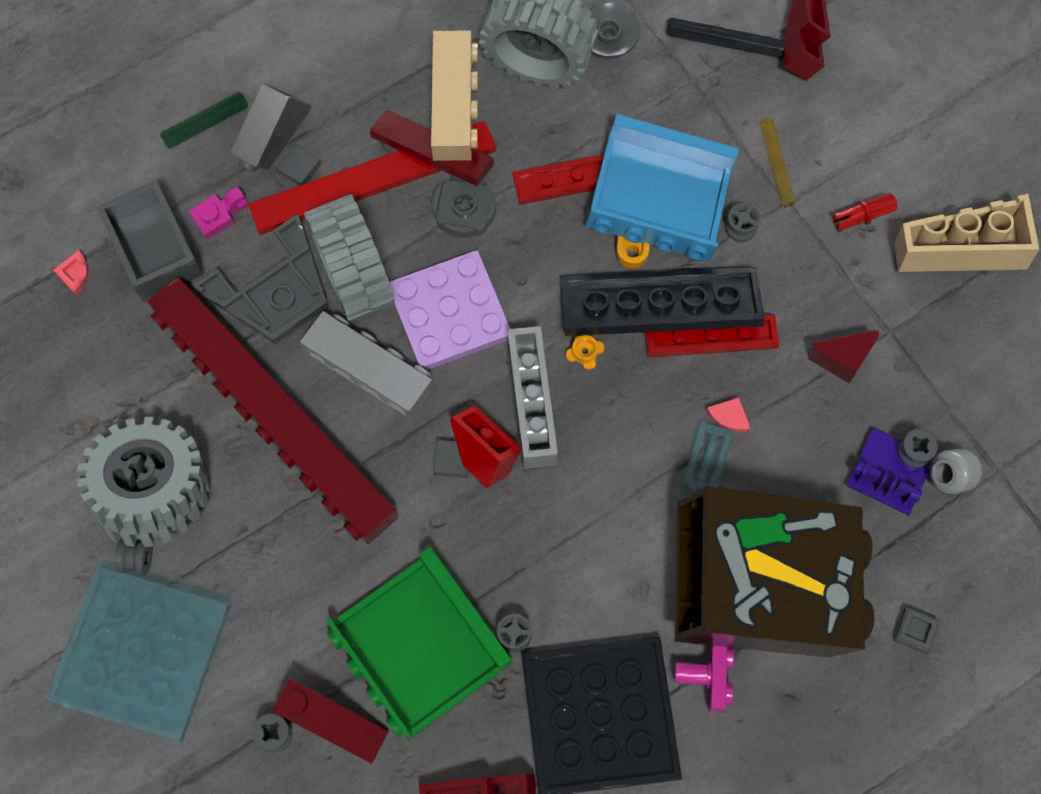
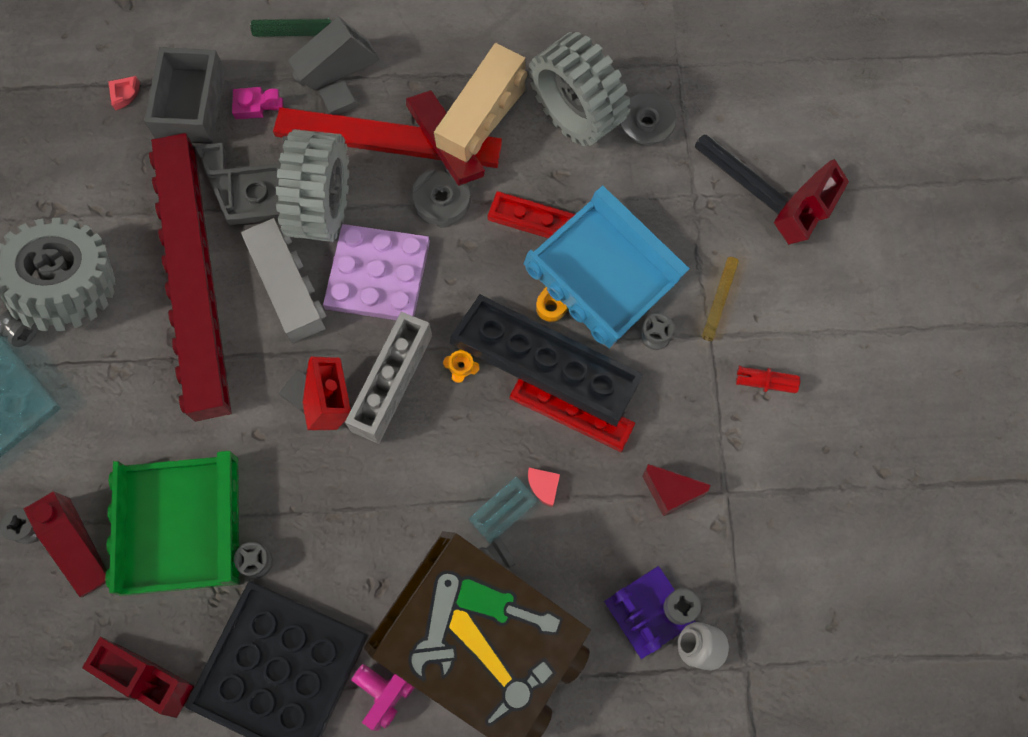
camera: 30 degrees right, 0 degrees up
(972, 240) = (844, 454): tan wedge -> none

